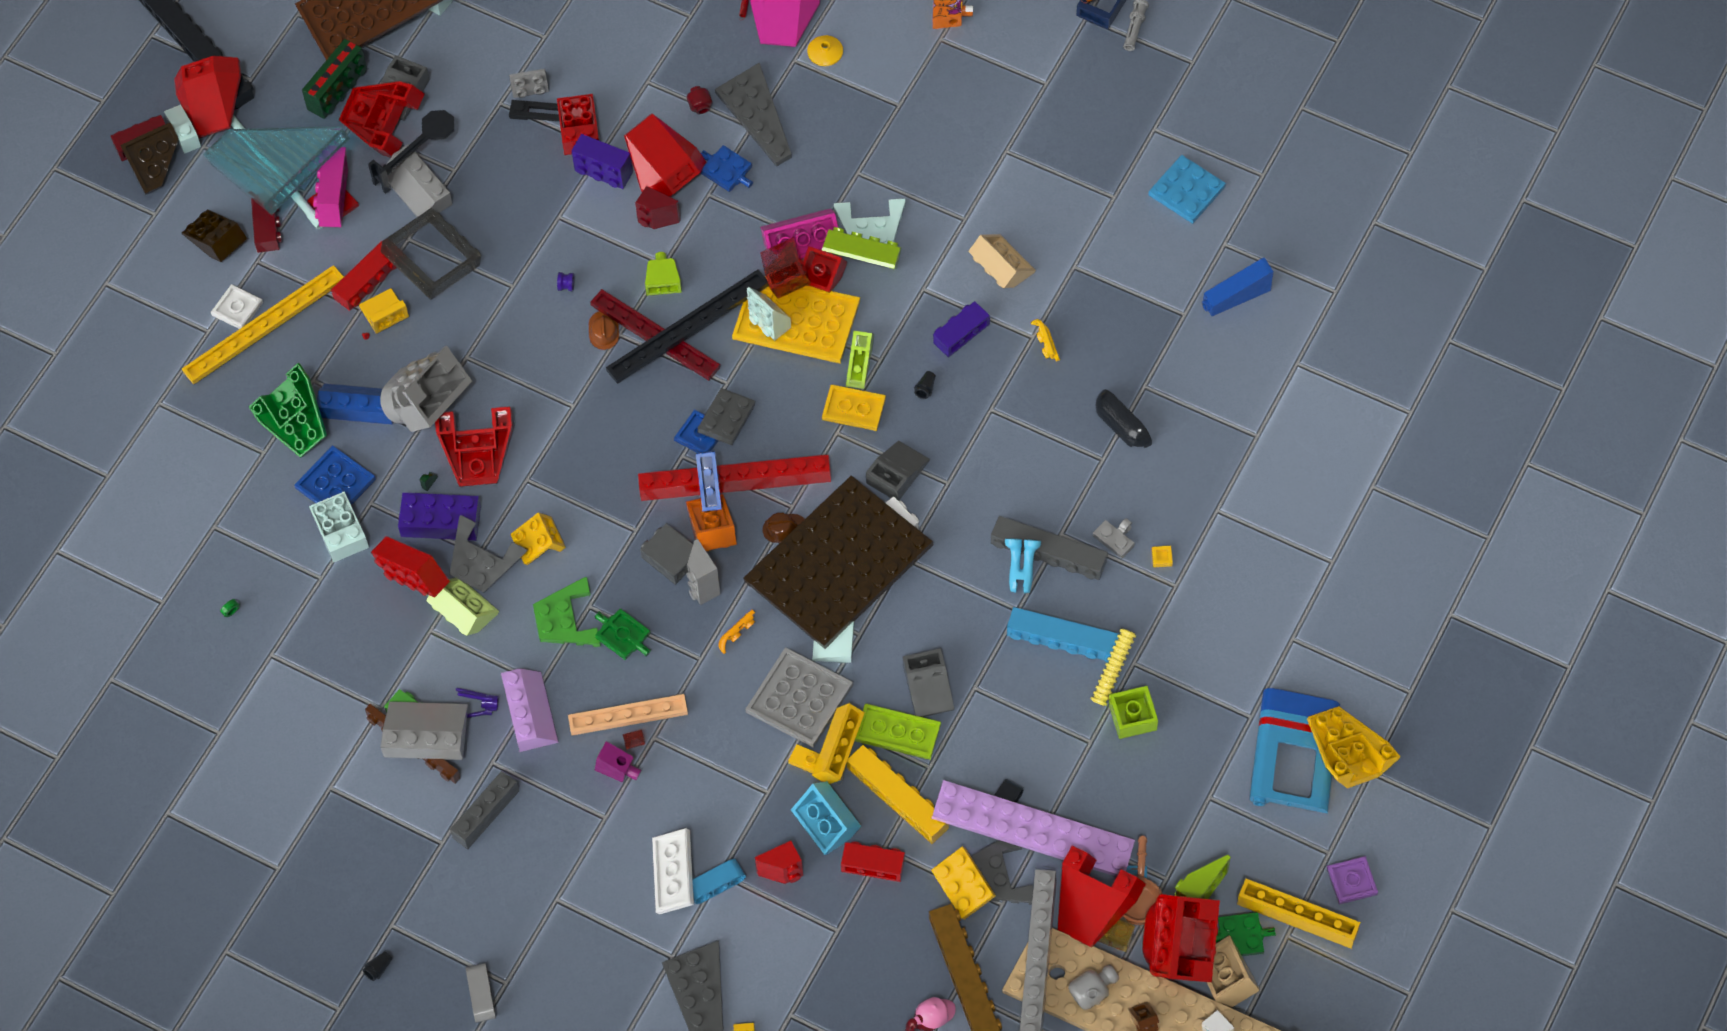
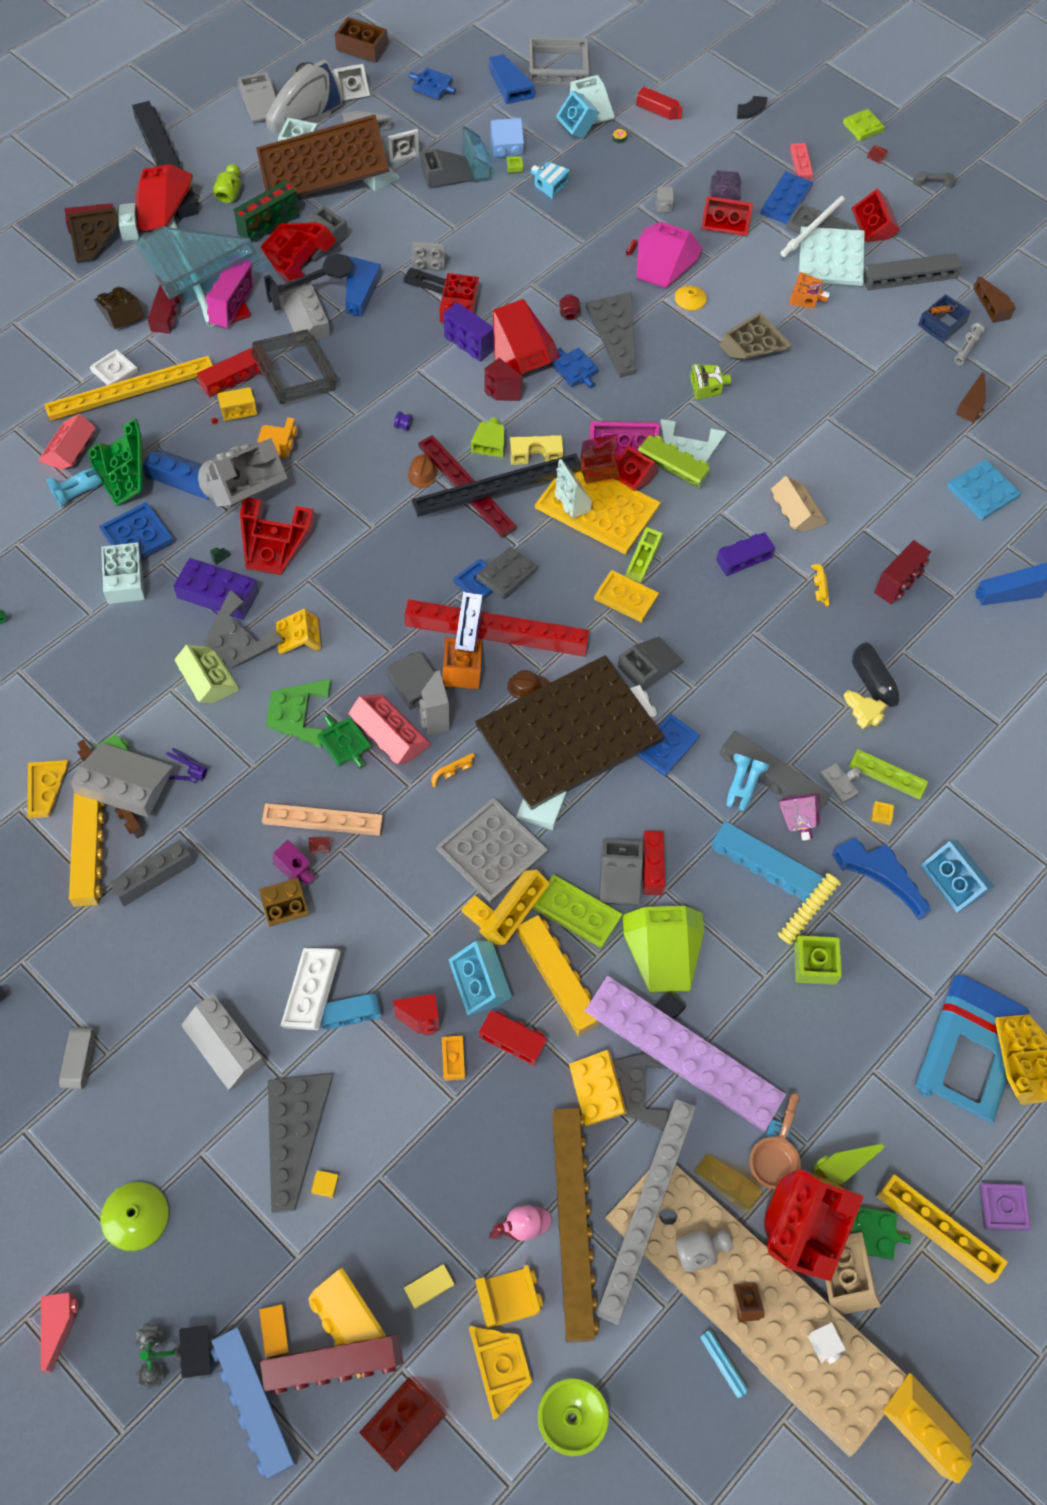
camera: 10 degrees right, 0 degrees up
(223, 404) = (68, 442): none -> coral slope
(259, 439) = (82, 481): none -> medium azure piece
(276, 55) = (228, 184): none -> lime piece
(346, 760) = (43, 786): none -> yellow wing
(409, 567) = (166, 624): red brick -> none
(413, 807) = (86, 851): none -> yellow brick
(437, 336) = (282, 437): none -> light orange bracket
(467, 136) = (361, 285): none -> blue slope
(529, 709) = (231, 787): lavender slope -> none
(608, 941) = (222, 1042): none -> light grey slope
(619, 801) = (283, 902): none -> pearl gold slope
(661, 608) = (388, 728): none -> coral slope
(727, 268) = (522, 447): none -> light yellow arch
(824, 895) = (453, 1058): none -> light orange plate
(870, 146) = (708, 380): none -> lime torso
(906, 85) = (753, 338): none -> dark tan wedge
(925, 385) = (697, 595): black cone -> none
(947, 542) = (677, 742): none -> blue plate
(956, 666) = (653, 863): none -> red brick
(988, 739) = (665, 945): none -> lime wedge
(1084, 579) = (801, 813): none -> torso
(1089, 906) = (719, 1155): red wedge -> none
(1121, 457) = (865, 709): none -> light yellow rock
(1124, 306) = (903, 572): none -> dark red brick
(1154, 93) = (974, 401): none -> reddish brown slope
(1158, 516) = (889, 774): none -> lime plate
(1174, 609) = (883, 868): none -> blue arch
(1246, 596) = (957, 875): none -> dark azure slope

